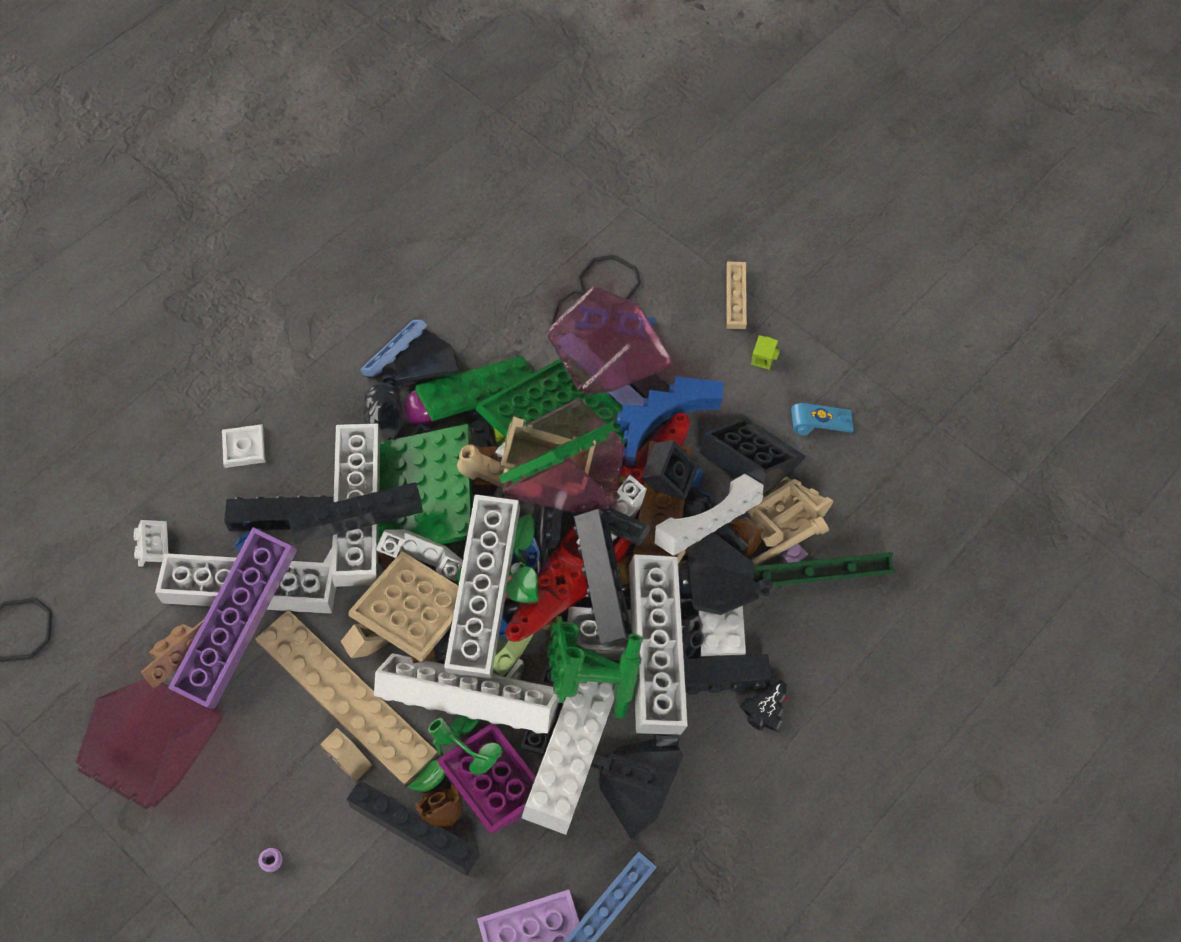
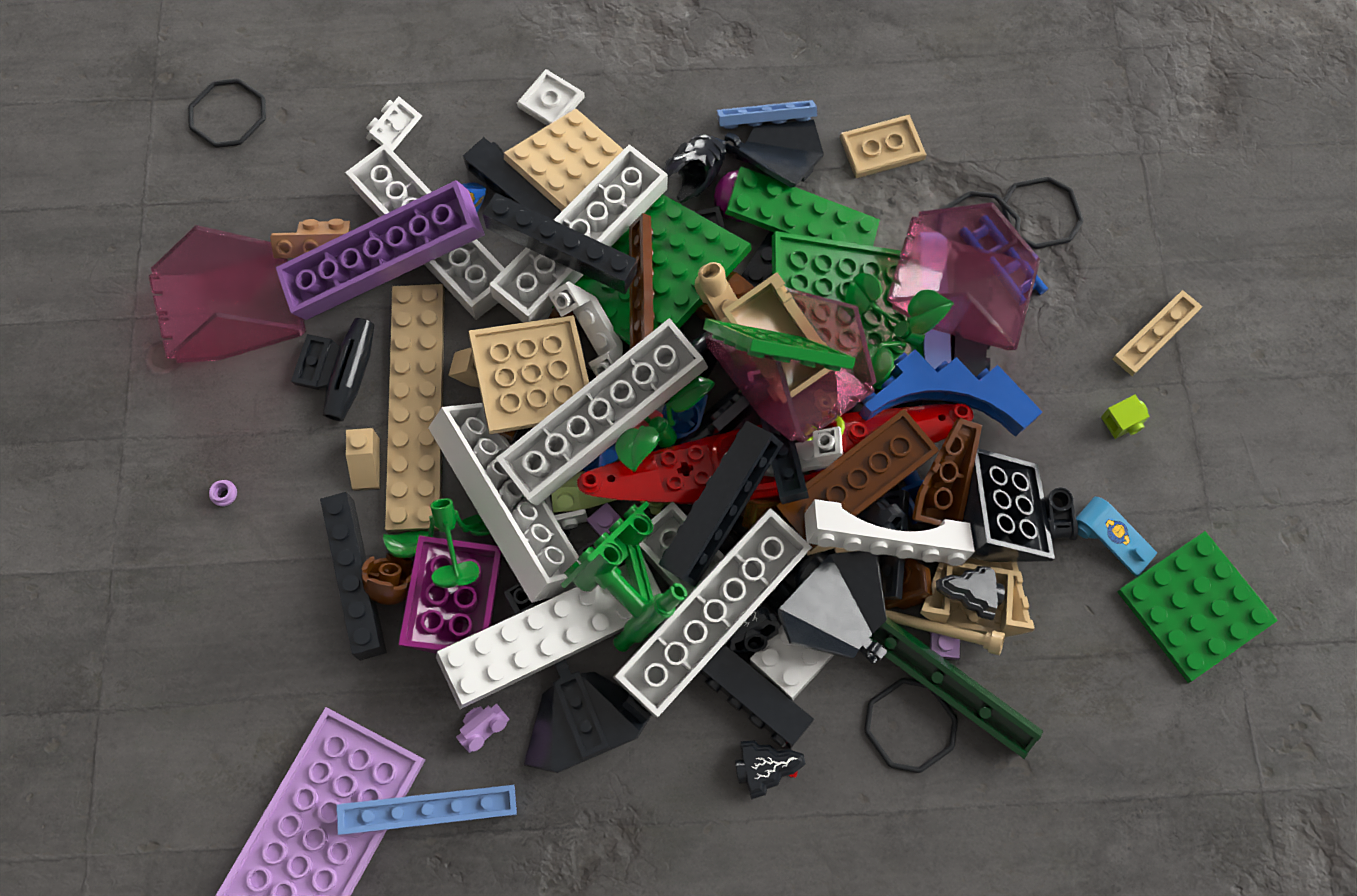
camera: 45 degrees right, 10 degrees up
(270, 716) = (336, 367): none -> black plate
(297, 470) = (563, 157): none -> tan plate
(432, 503) = (642, 286): none -> reddish brown plate
(481, 314) = (882, 146): none -> tan tile
(535, 658) = (603, 519): none -> lavender plate
(583, 839) = (481, 725): none -> lavender piece
(612, 375) = (925, 312): none -> green plant
(669, 470) = (890, 455): black slope -> none
(713, 465) = (949, 478): none -> reddish brown wedge
(783, 507) = (975, 590): none -> black rock
(786, 432) = (1061, 520): none -> black piece
(814, 641) = (878, 747): none -> black piece
(897, 420) = (1197, 606): none -> green plate

